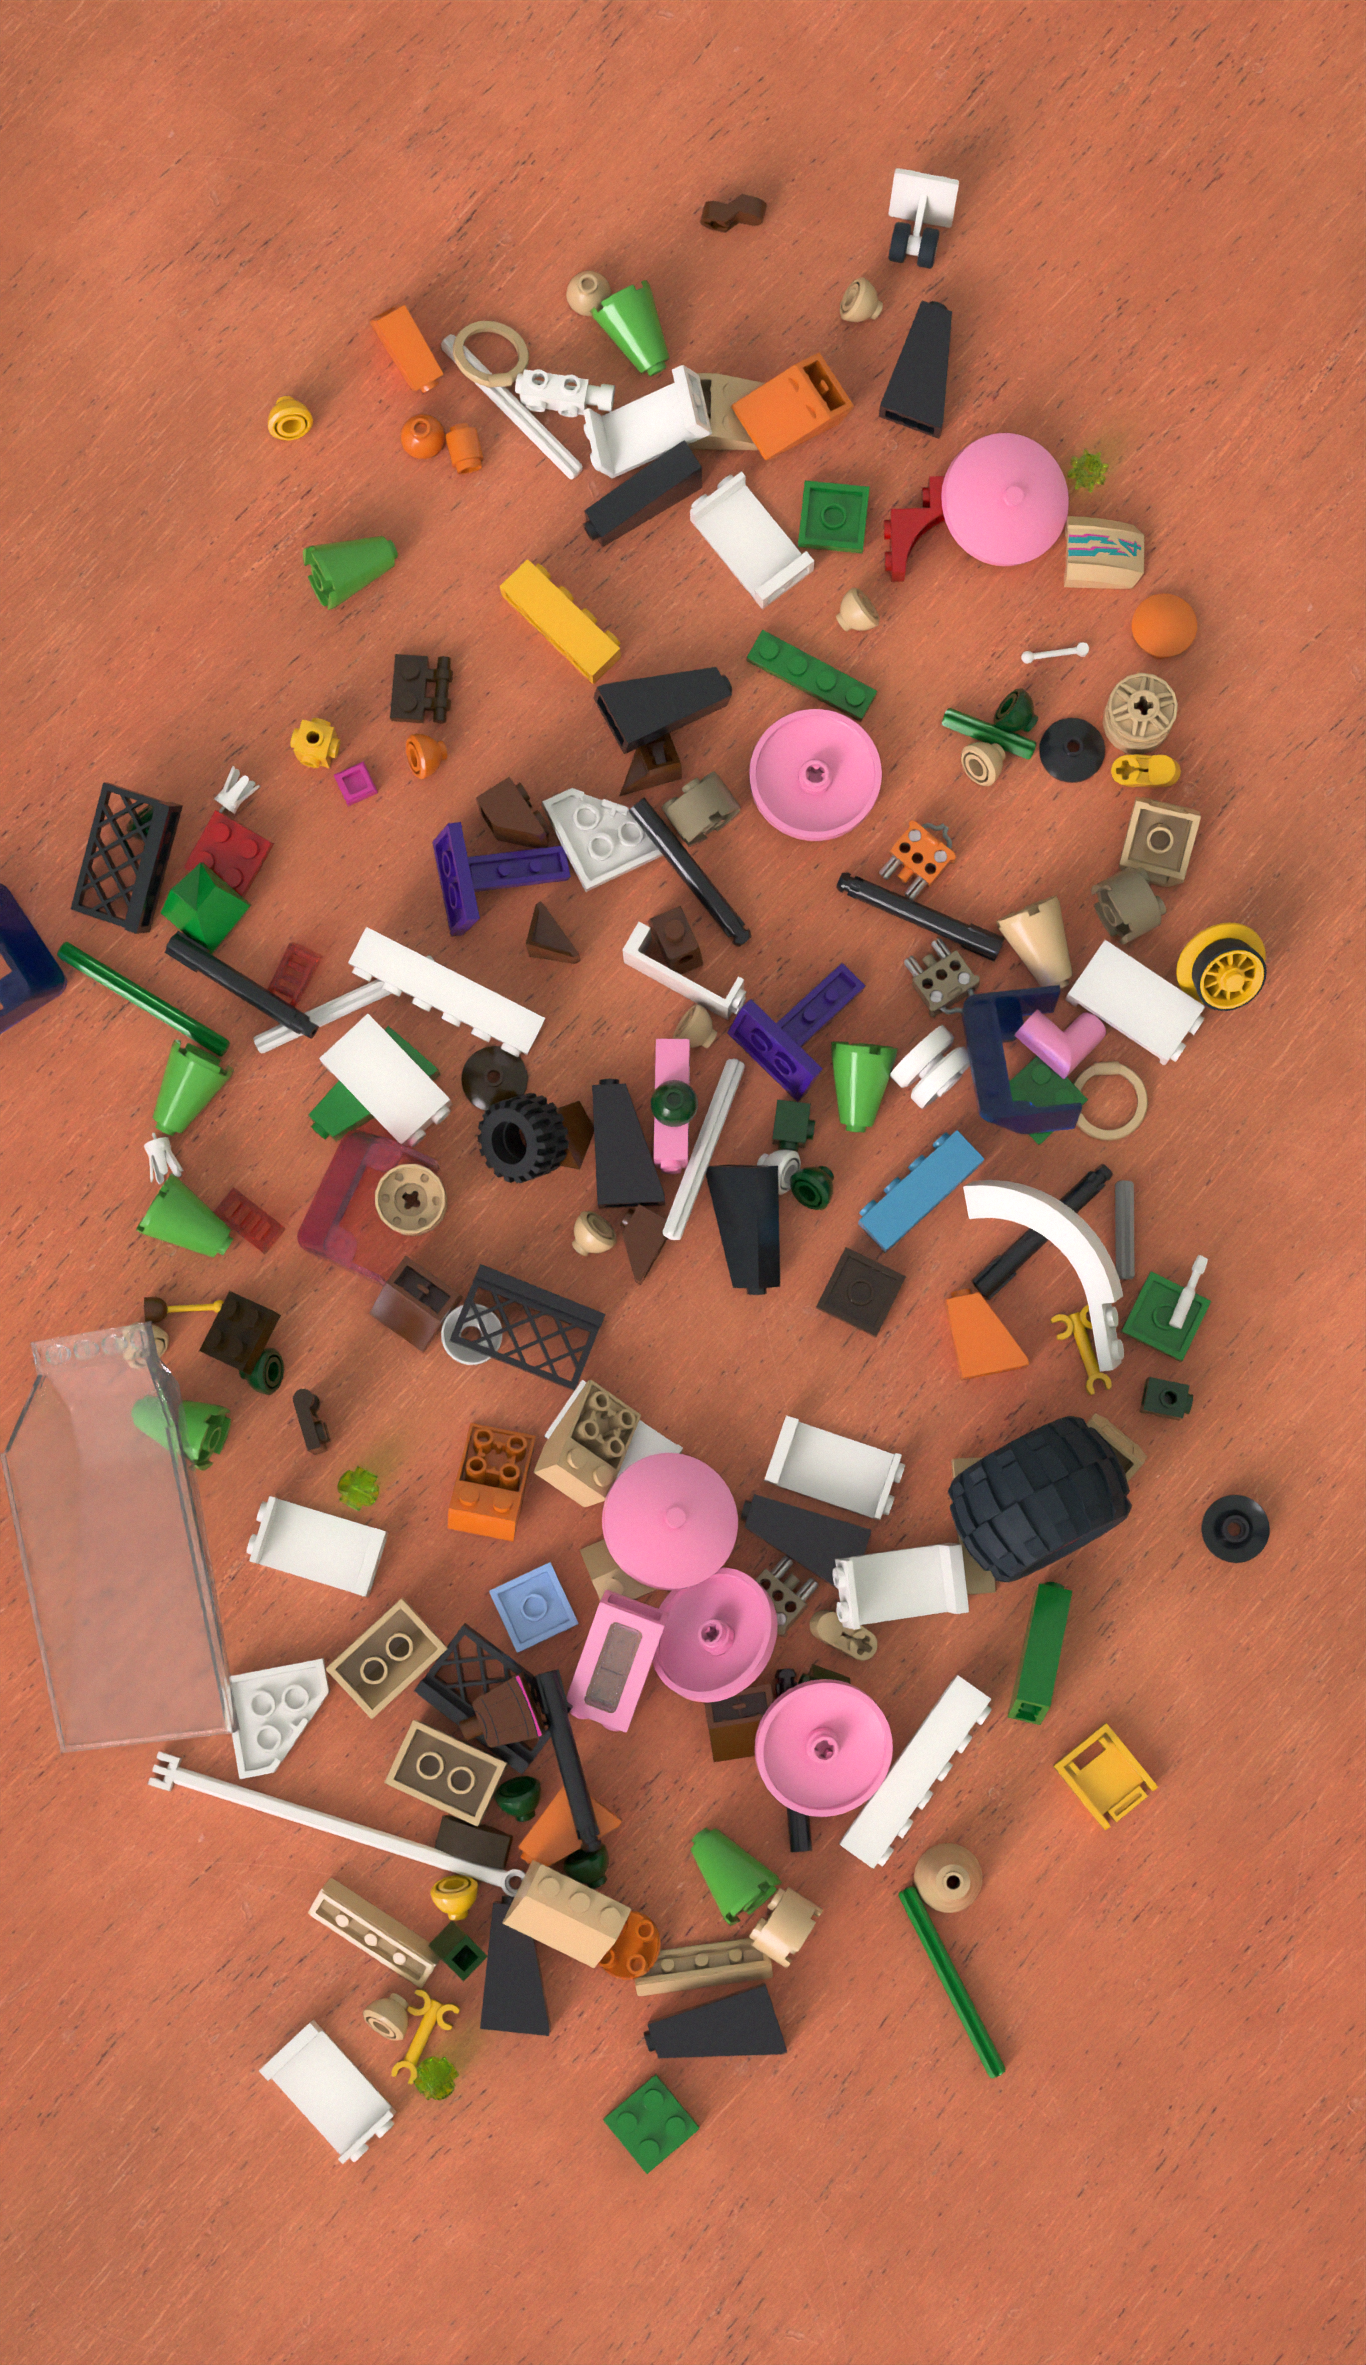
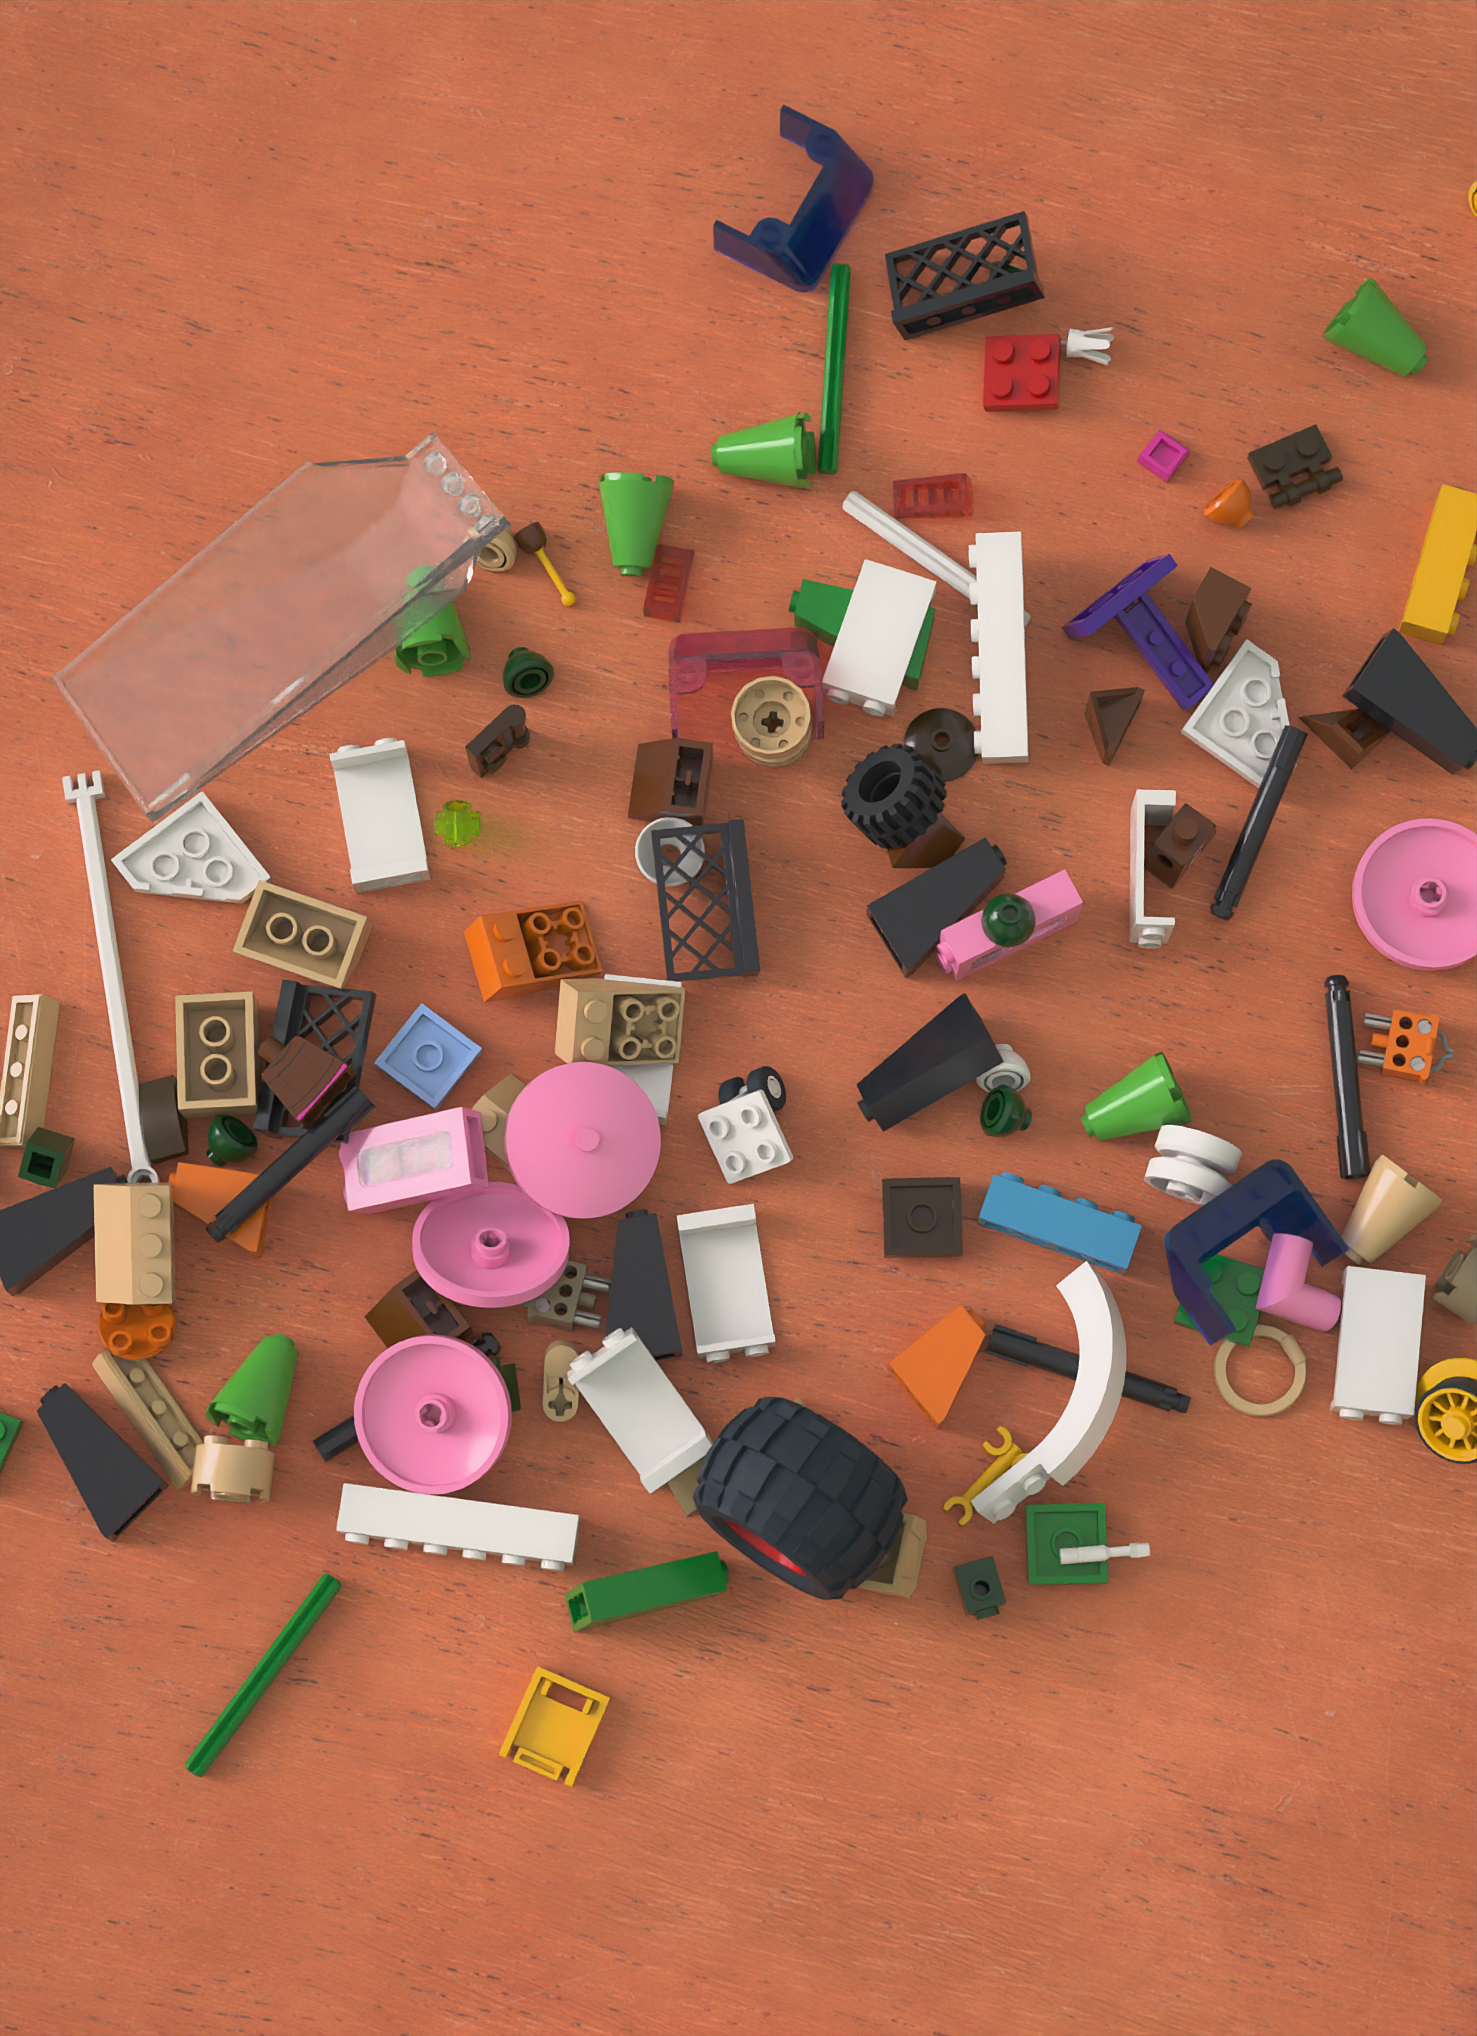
camera: 60 degrees right, 5 degrees down
(159, 1153) = (690, 458): white piece -> none
(199, 959) = (902, 398): black piece -> none
(204, 907) = (956, 375): green slope -> none
(240, 1333) = (551, 629): dark brown plate -> none
(318, 753) = (1181, 394): yellow brick -> none
(455, 1895) = (100, 1128): yellow brick -> none
(588, 1867) = (195, 1244): dark green brick -> none
(593, 1234) = (836, 919): tan brick -> none
(643, 1239) = (856, 973): reddish brown slope -> none
(697, 1027) = (1102, 913): tan brick -> none
(701, 809) = (1329, 799): dark tan brick -> none
(703, 1149) = (981, 982): white axle -> none
(719, 1390) = (744, 1126): none -> white plate
(779, 1044) = (1132, 1000): dark purple piece -> none
(792, 1125) = (1055, 1059): dark green brick -> none
(936, 1867) = (380, 1626): tan cone -> none
(943, 992) = (1279, 1143): dark tan piece -> none
(1124, 1229) = (1134, 1455): light grey axle -> none
(1252, 1524) = (904, 1726): black dish -> none

